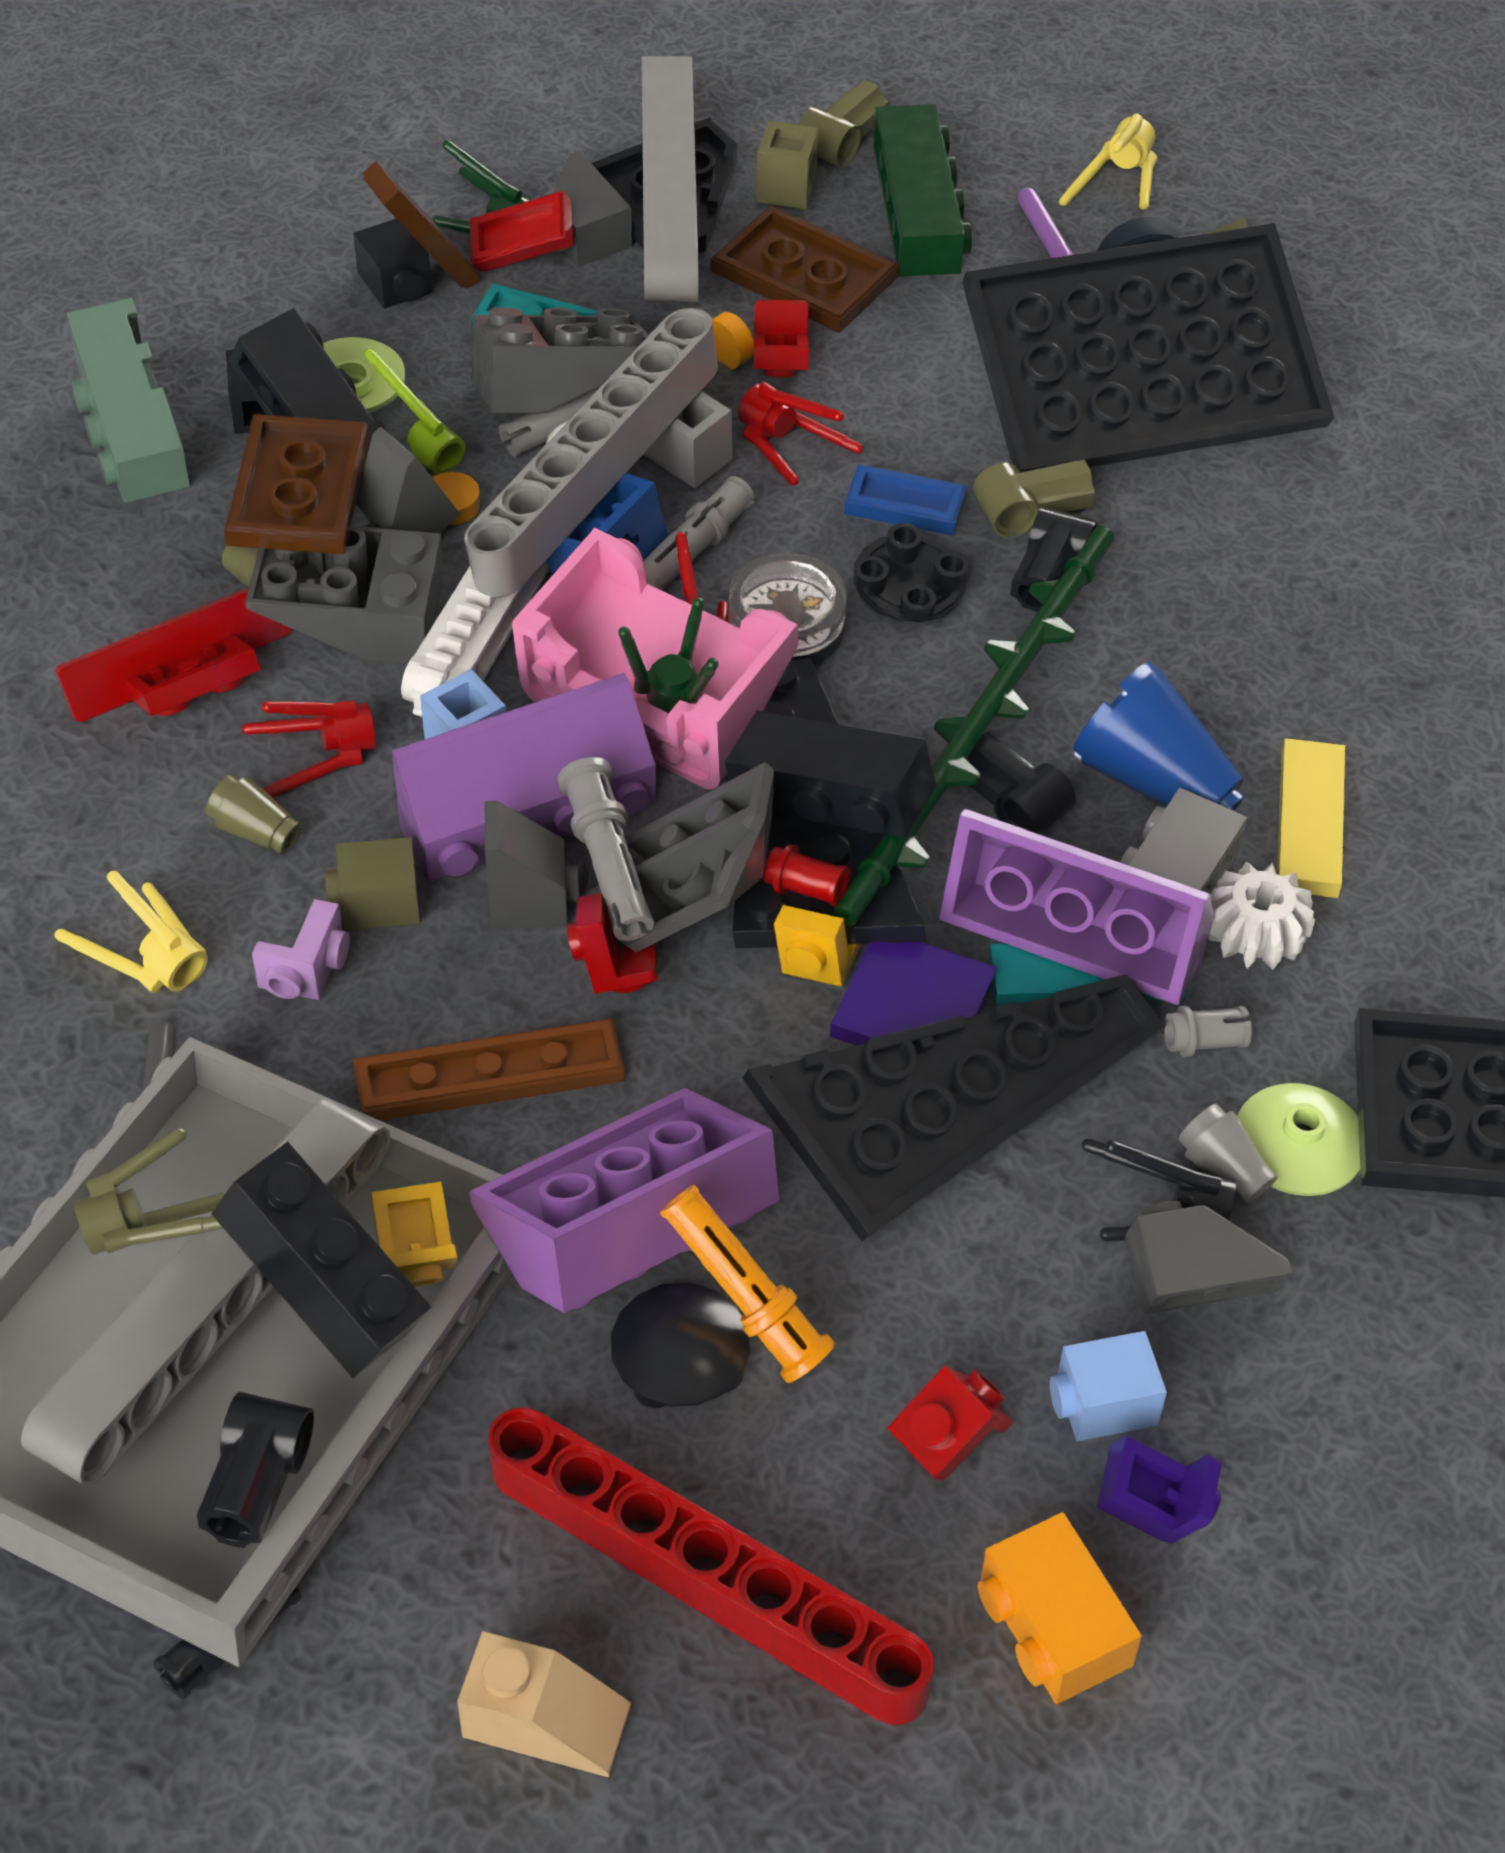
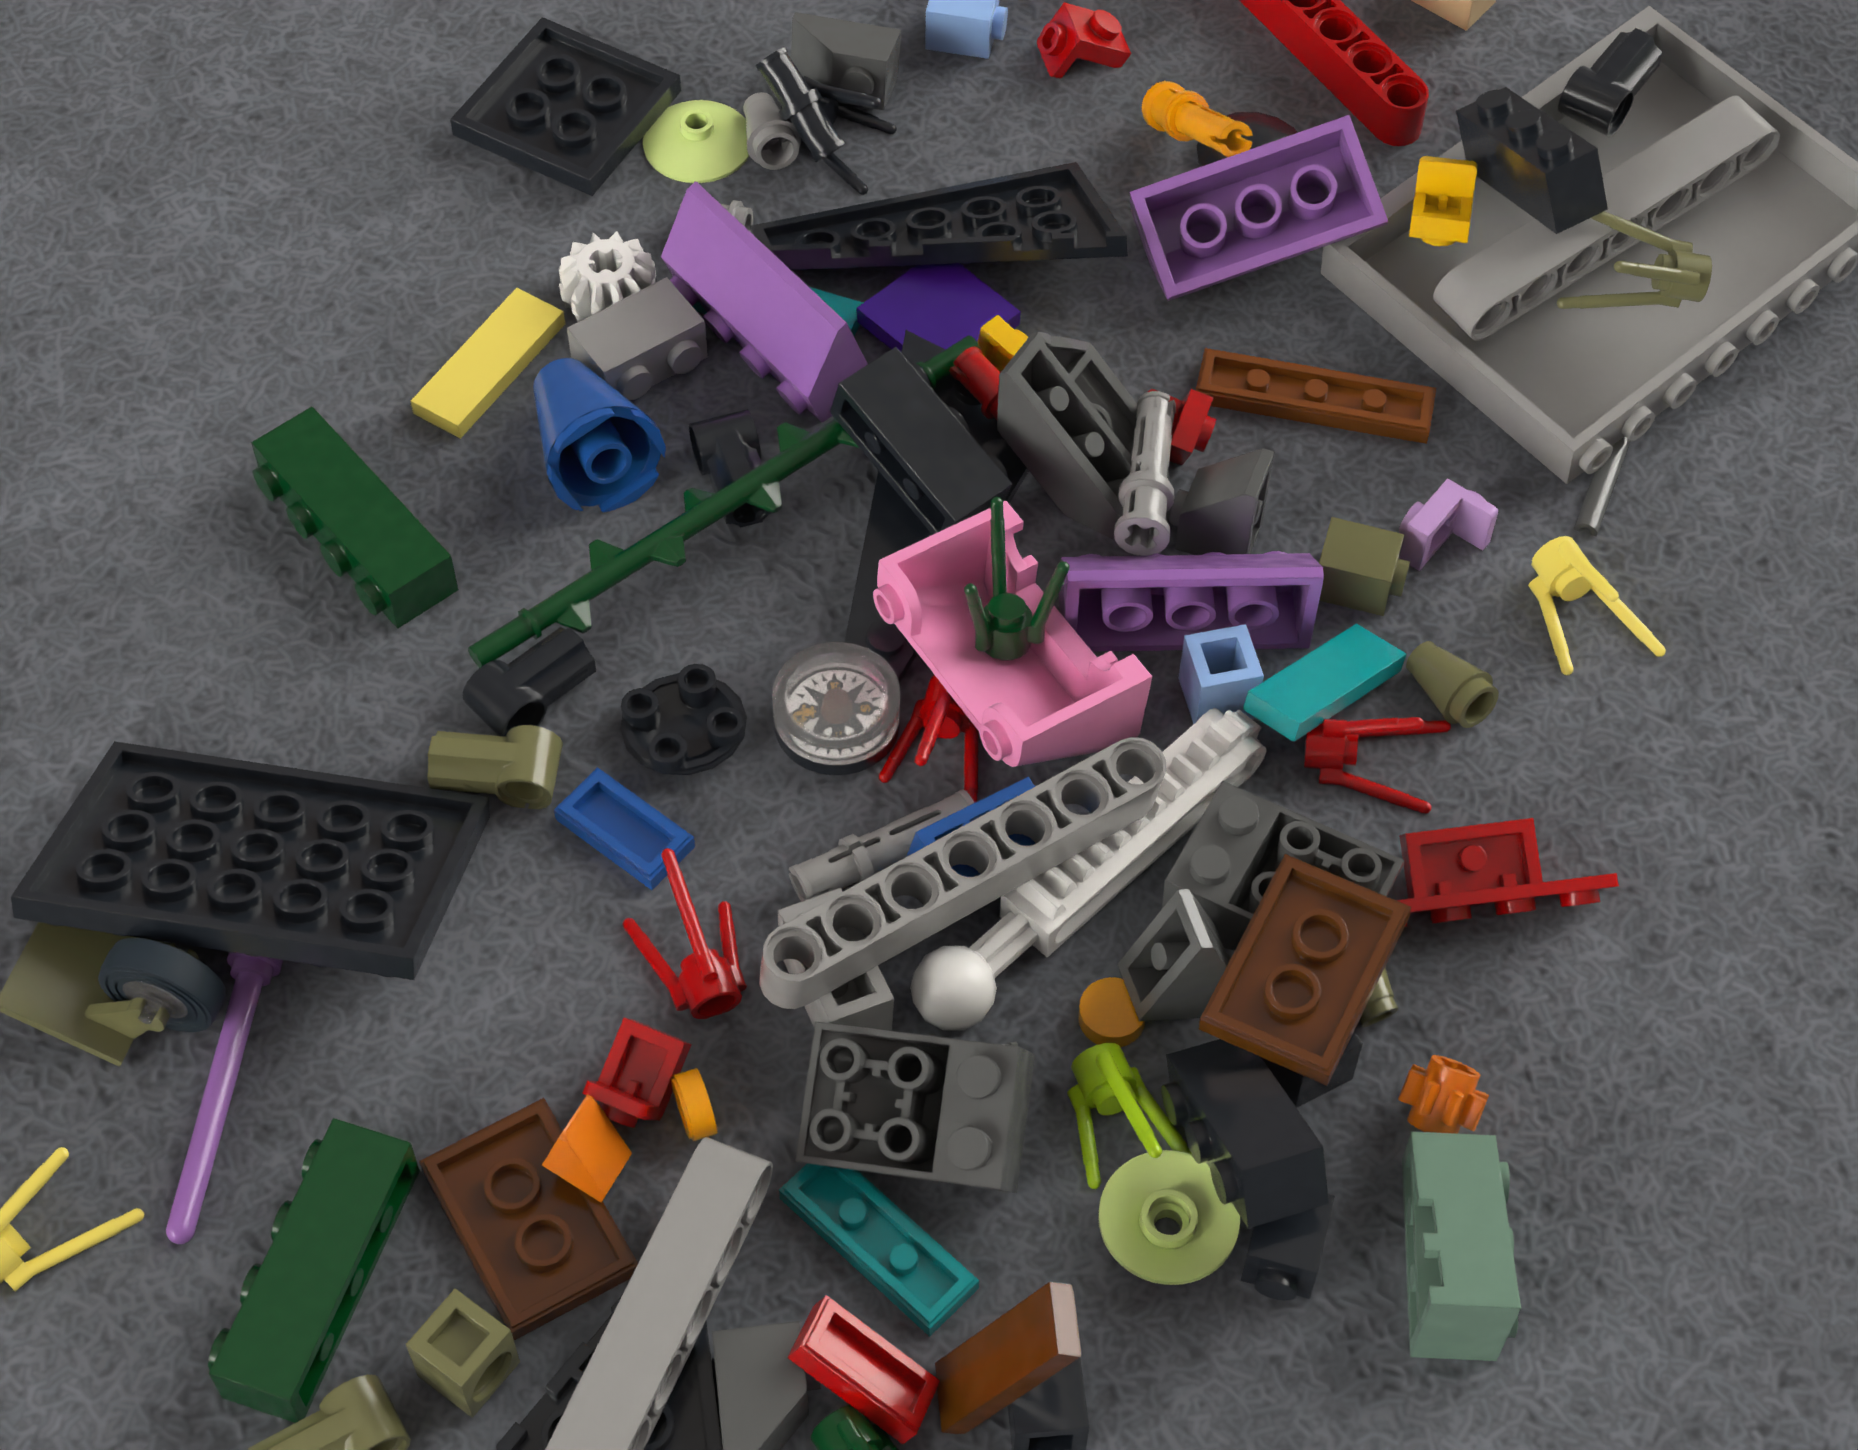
camera: 155 degrees left, 5 degrees up
(150, 504) = (1443, 1096): none -> orange gear
(363, 760) = (1324, 682): none -> teal tile
(784, 279) = (589, 1151): none -> orange slope
(1201, 1140) = (800, 104): none -> black pin
(1303, 627) = (354, 518): none -> dark green brick

